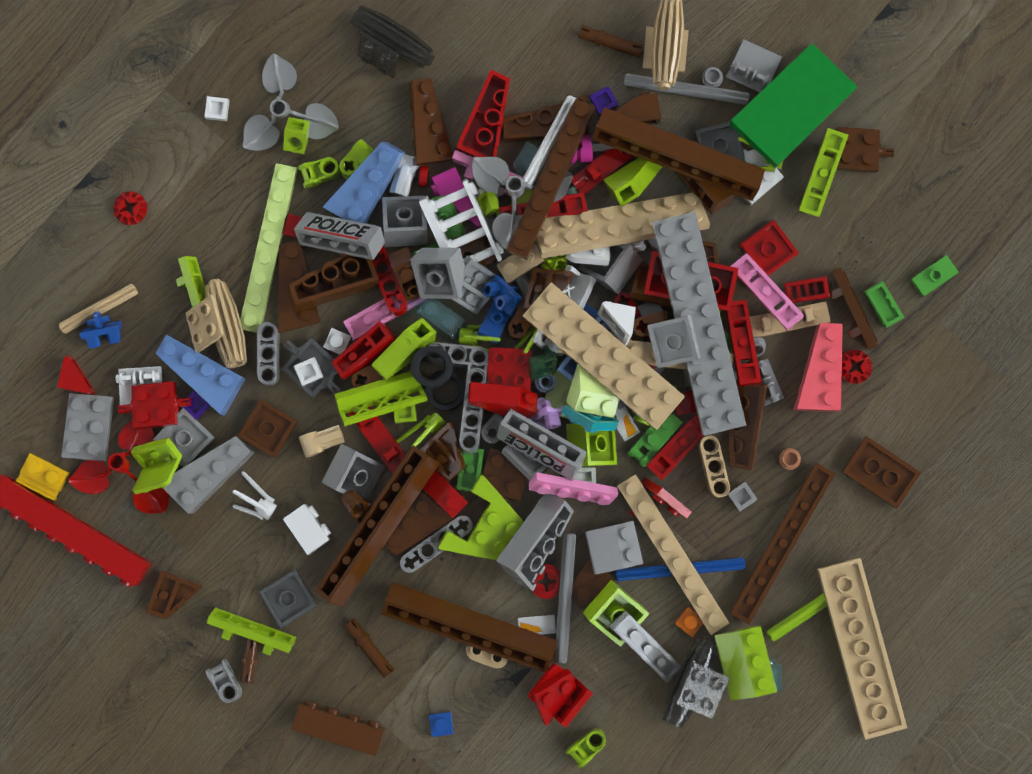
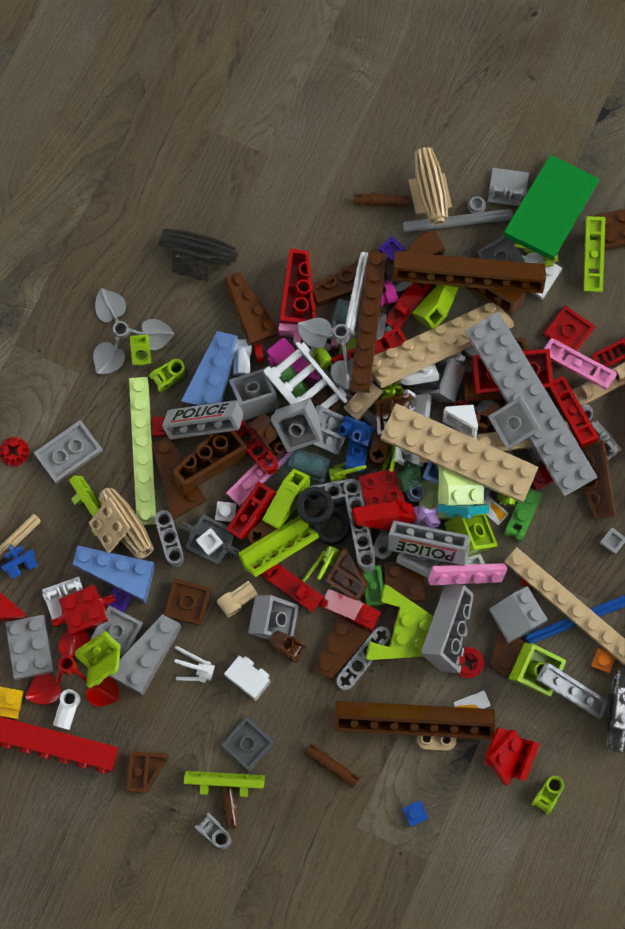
camera: 15 degrees left, 10 degrees down
(107, 507) = (66, 711): none -> white piece
(187, 226) = (68, 451): none -> light grey plate
(217, 108) = (65, 347): white plate -> none
(338, 728) = (326, 843): reddish brown brick -> none
(355, 158) = (196, 355): lime piece -> none
(377, 526) = (308, 655): reddish brown brick -> none
(405, 414) = (303, 556): lime plate -> none
(565, 597) = (489, 670): light grey axle -> none
(662, 496) = (550, 560): red wing -> none
(676, 448) = (545, 516): red slope -> none
(721, 474) = (581, 513): tan beam -> none

